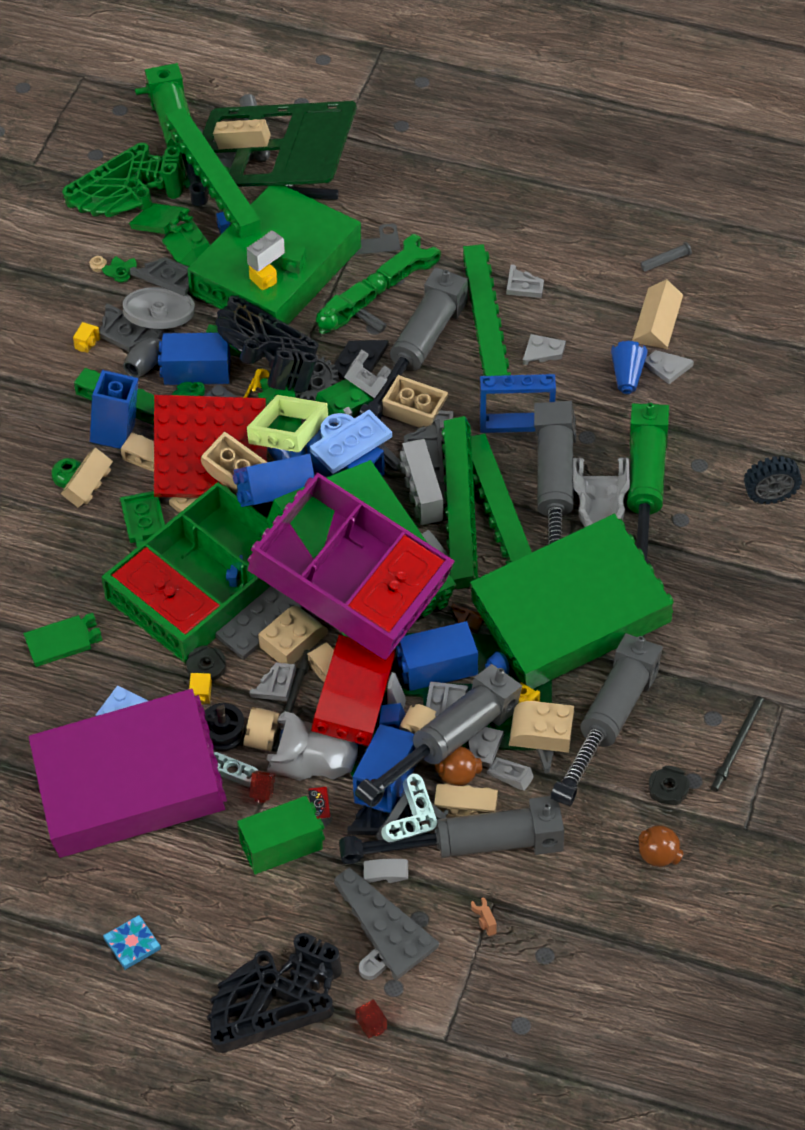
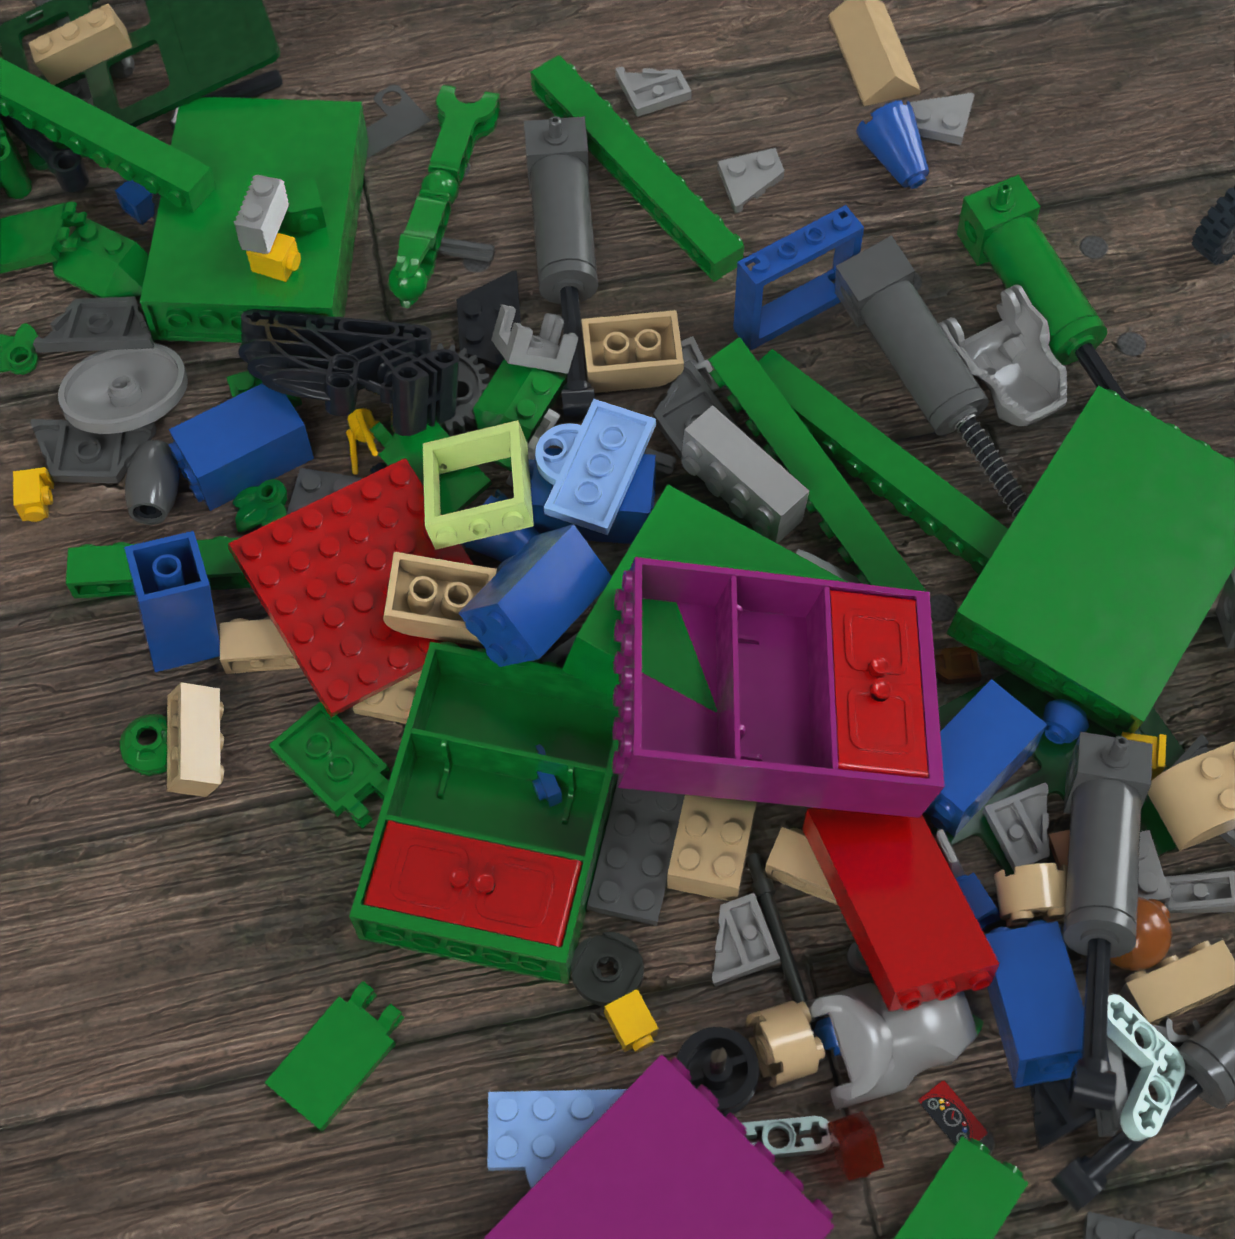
camera: 30 degrees left, 10 degrees up
(386, 869) = (1147, 1182): light grey slope -> none

